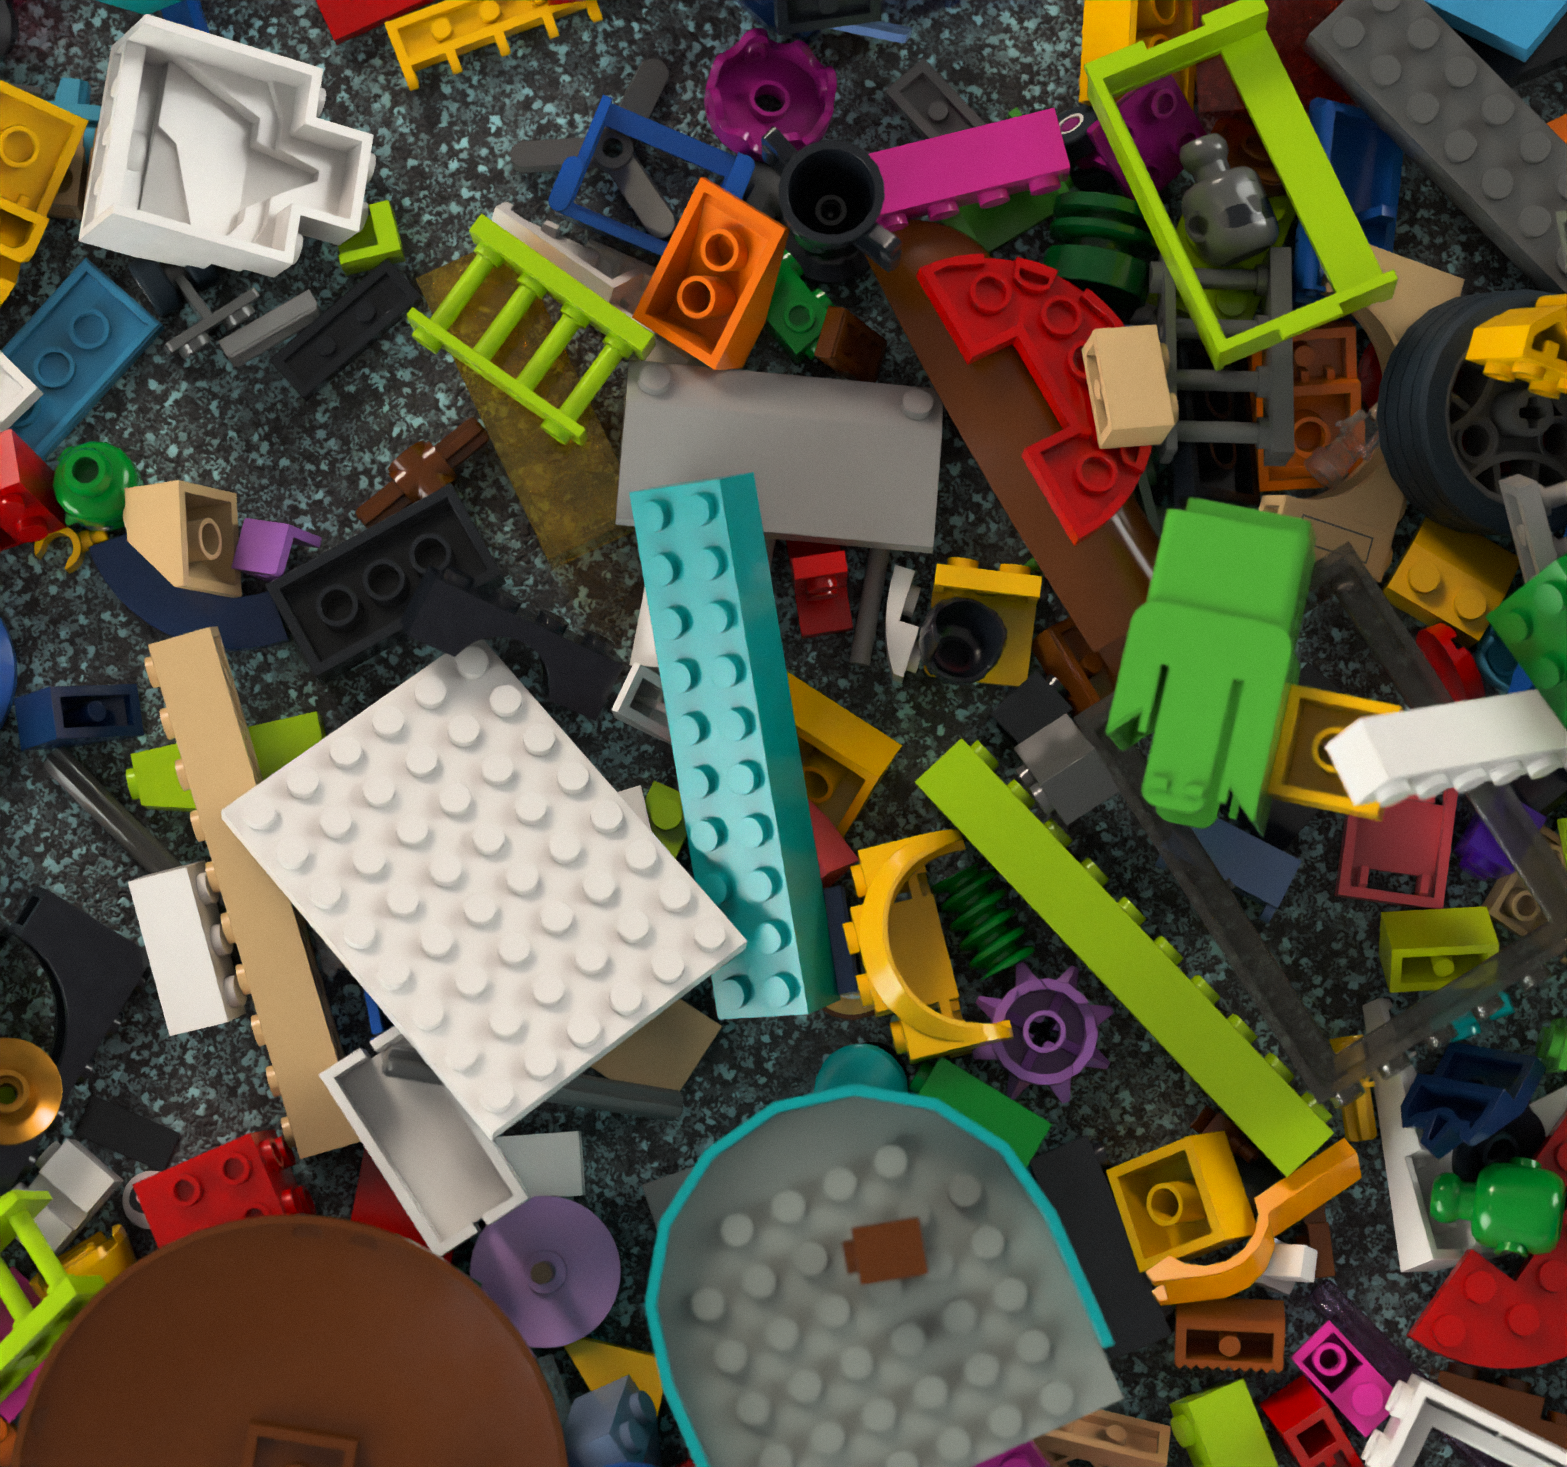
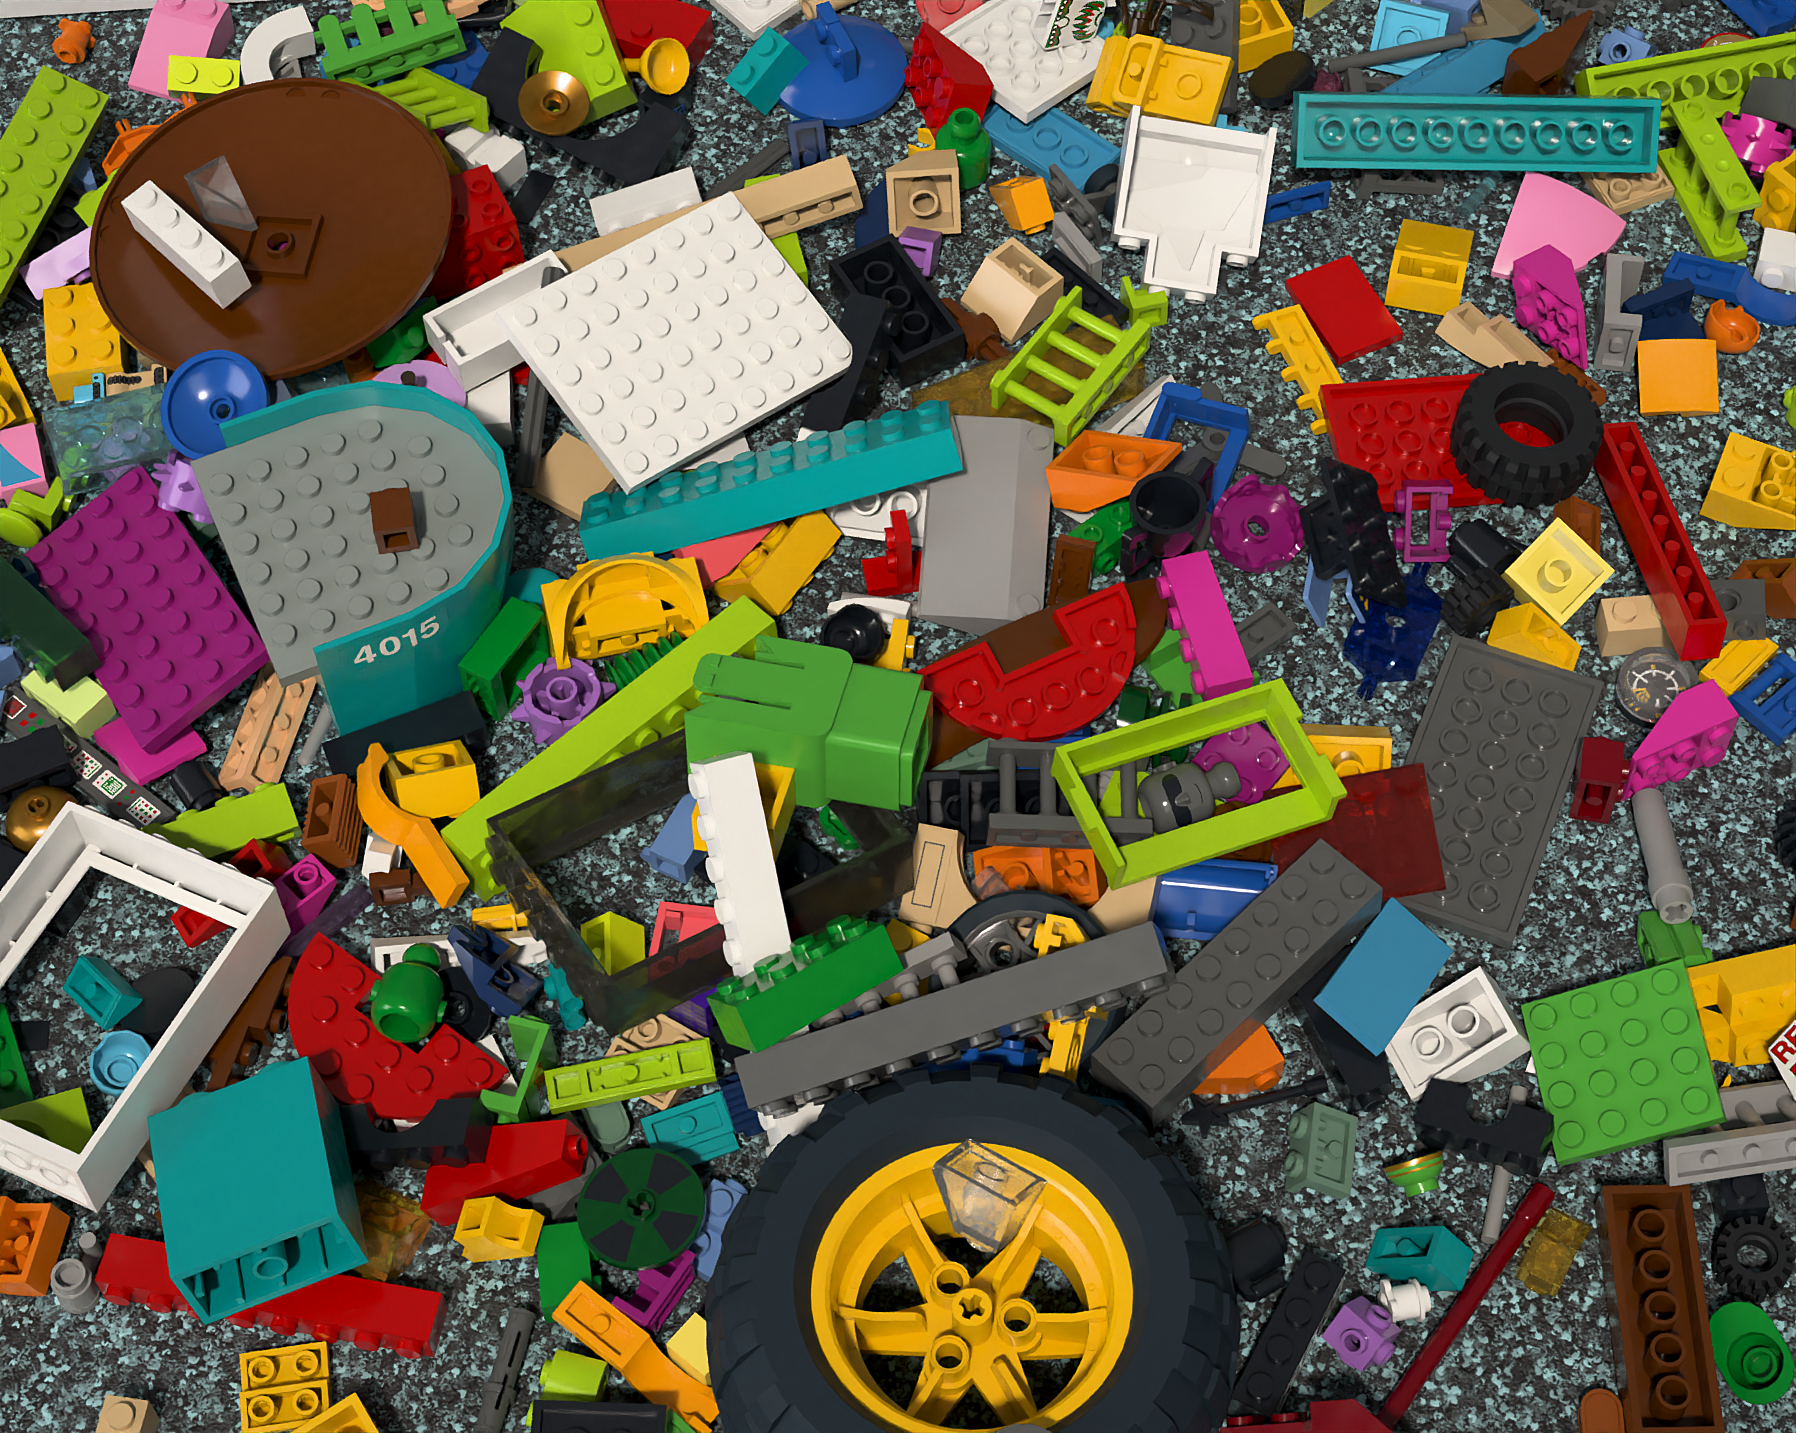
camera: 90 degrees right, 25 degrees down
(180, 404) = (1024, 203): none -> light orange slope
(354, 419) = (1014, 289): none -> tan slope
(1129, 386) = (1033, 707): tan brick -> none

